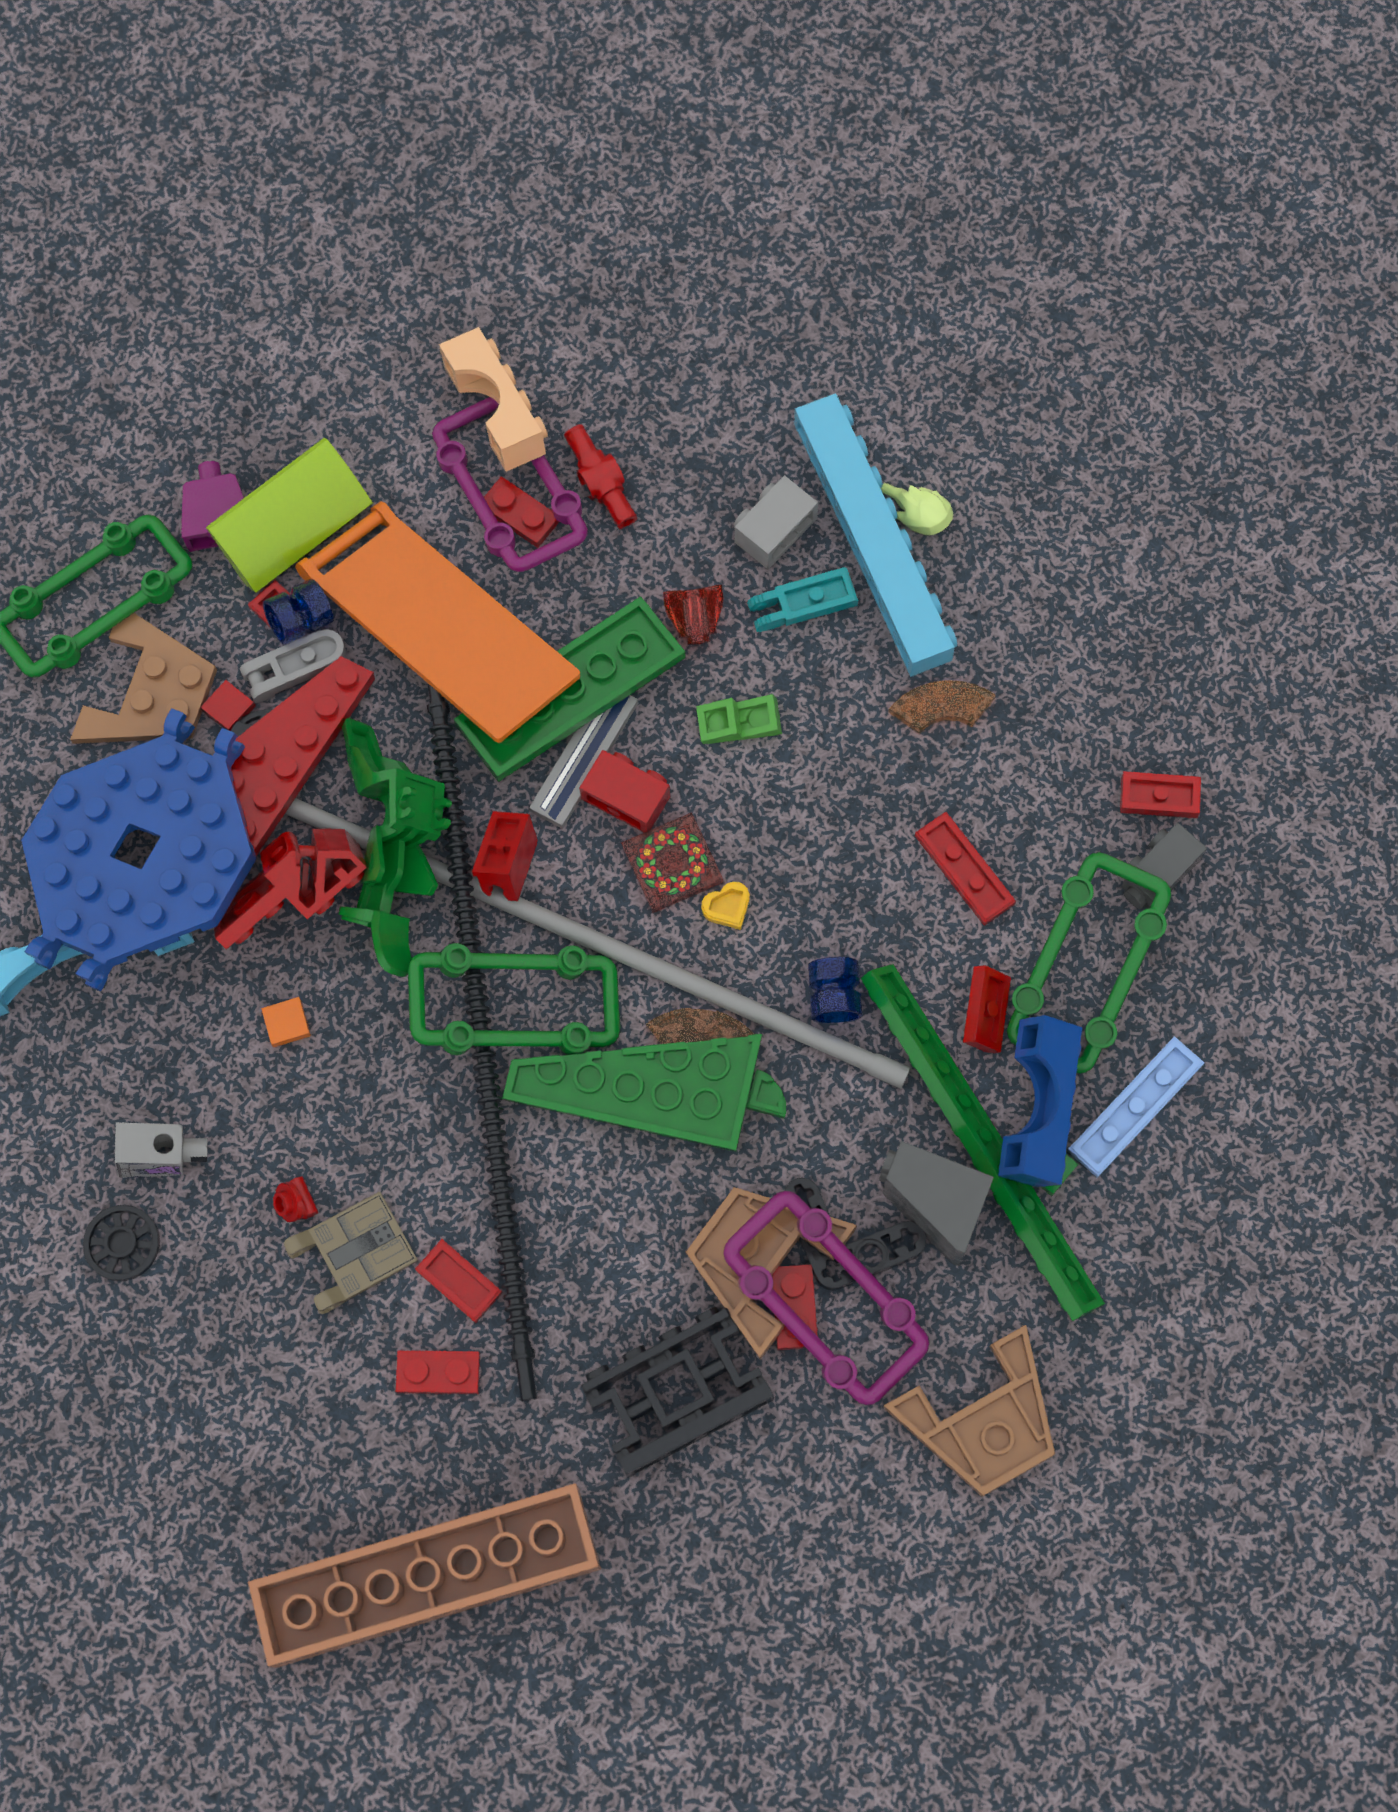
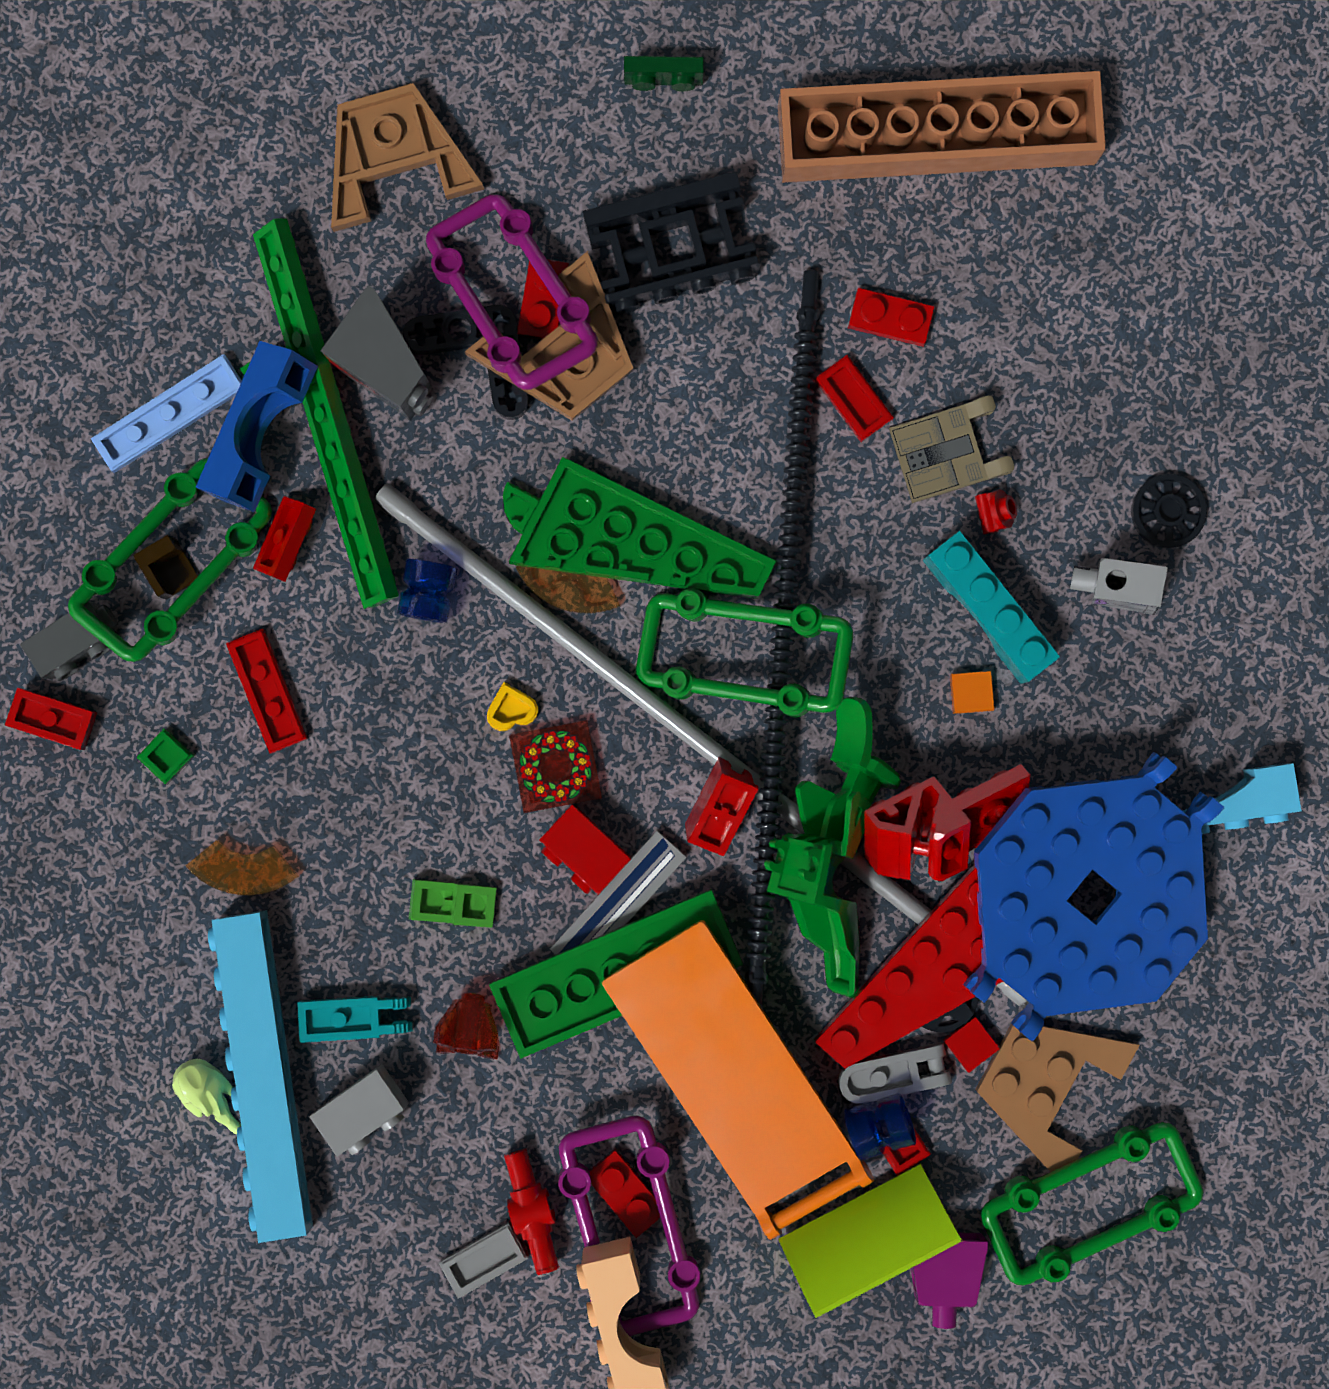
camera: 170 degrees left, 15 degrees up
(282, 1100) = (1000, 616): none -> teal arch
(634, 430) = (483, 1259): none -> light grey tile
(709, 1573) = (649, 71): none -> dark green plate
(1043, 787) = (165, 756): none -> green tile
(1093, 956) = (166, 567): none -> dark brown panel

